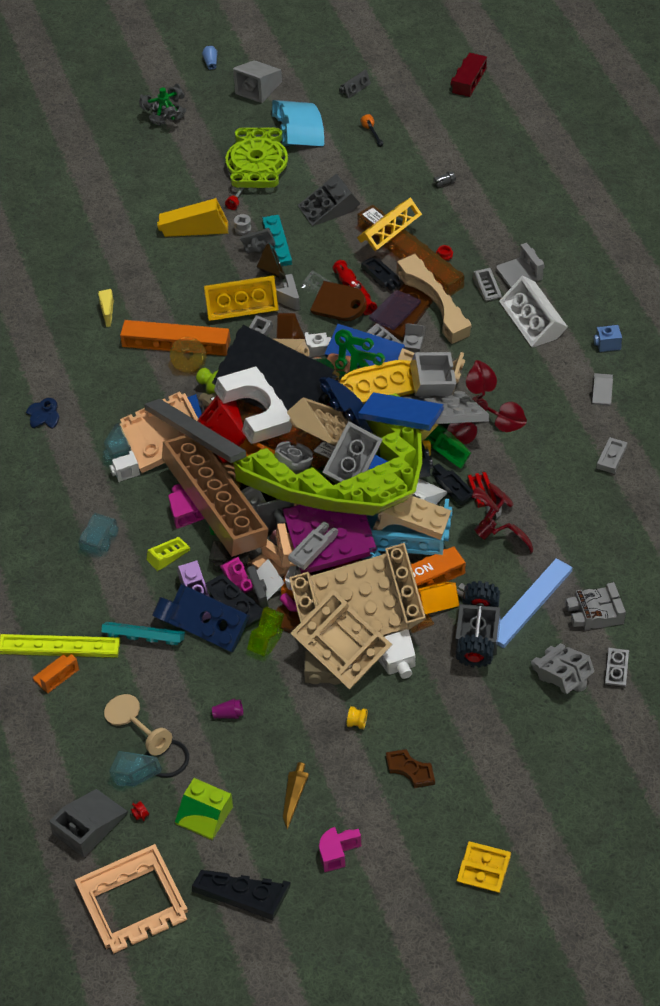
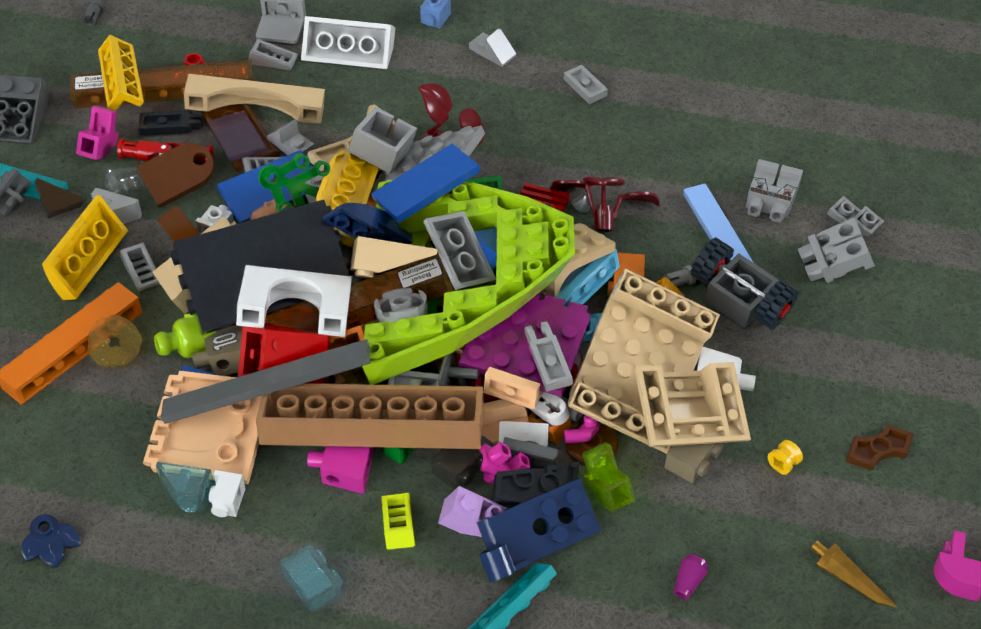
camera: 60 degrees left, 0 degrees up
(332, 251) = (100, 136): none -> dark pink brick

